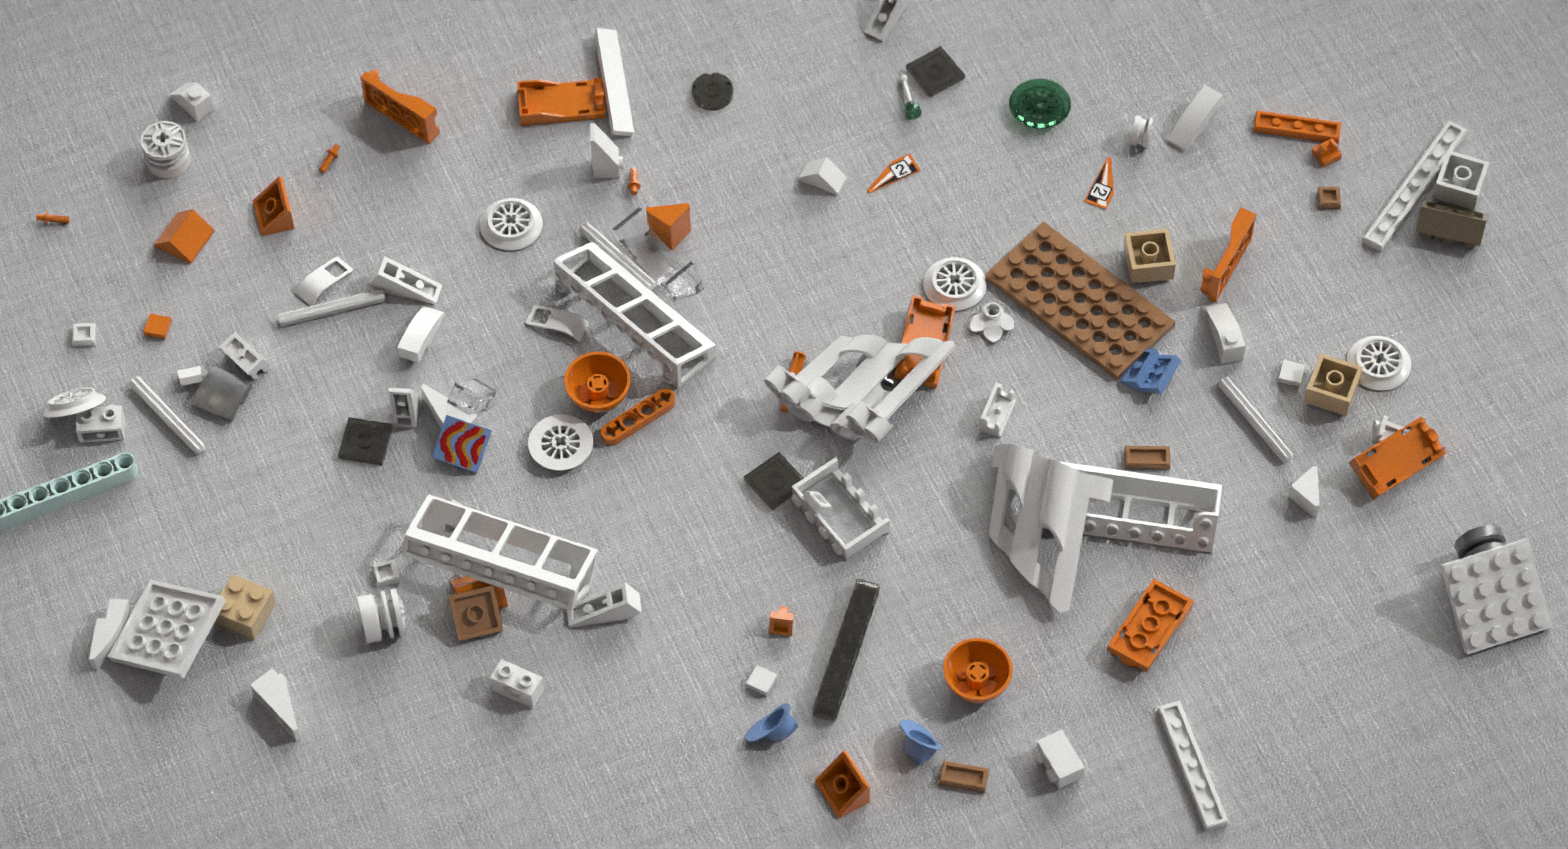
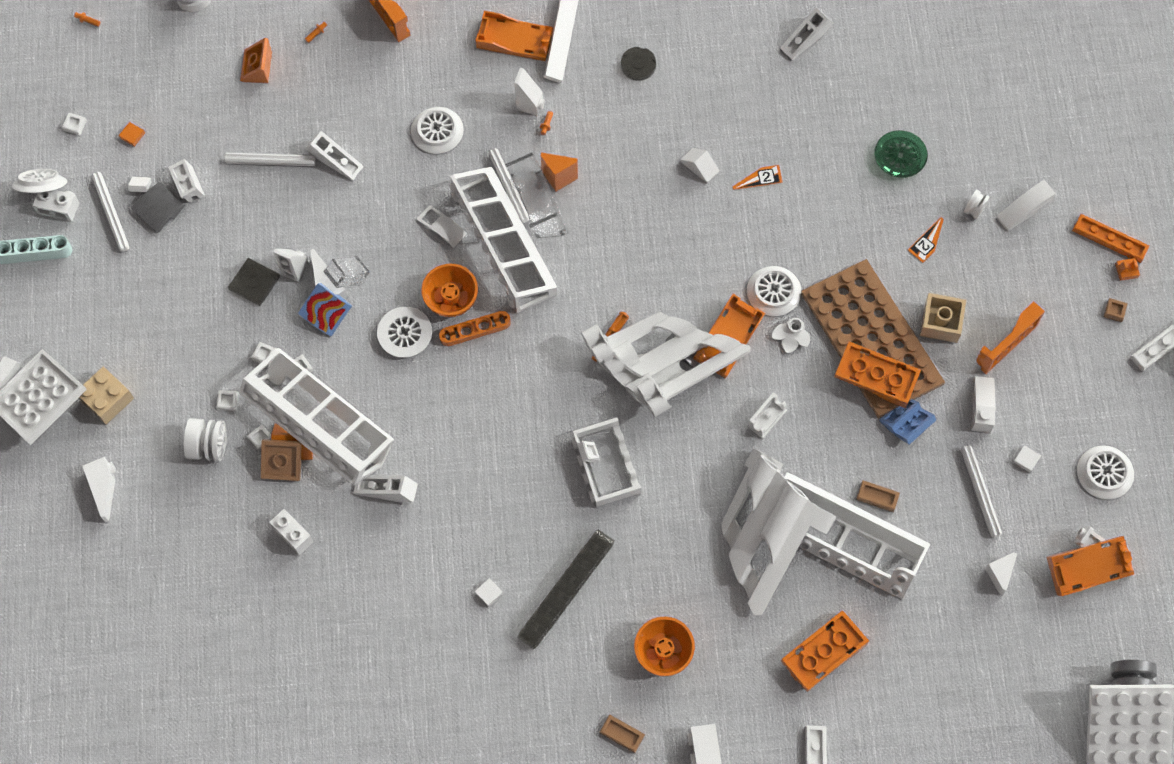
camera: 20 degrees right, 10 degrees up
(185, 236) = (181, 65): orange slope -> none
(319, 281) = (269, 133): white piece -> none
(406, 512) = (262, 352): none -> white tile
(420, 334) = (329, 203): white slope -> none
(438, 600) = (257, 435): none -> white tile
(773, 480) = (563, 418): clear smoke tile -> none
(775, 726) = (481, 637): medium blue piece -> none
(781, 622) = (523, 546): orange tile -> none
(843, 786) = (518, 710): orange slope -> none
(911, 109) = (794, 126): clear green hinge -> none
(918, 742) = (596, 690): medium blue piece -> none
(935, 71) = (825, 99): clear smoke tile -> none
(1102, 330) = (878, 374): none -> orange piece
(1333, 384) = (1058, 482): tan brick -> none

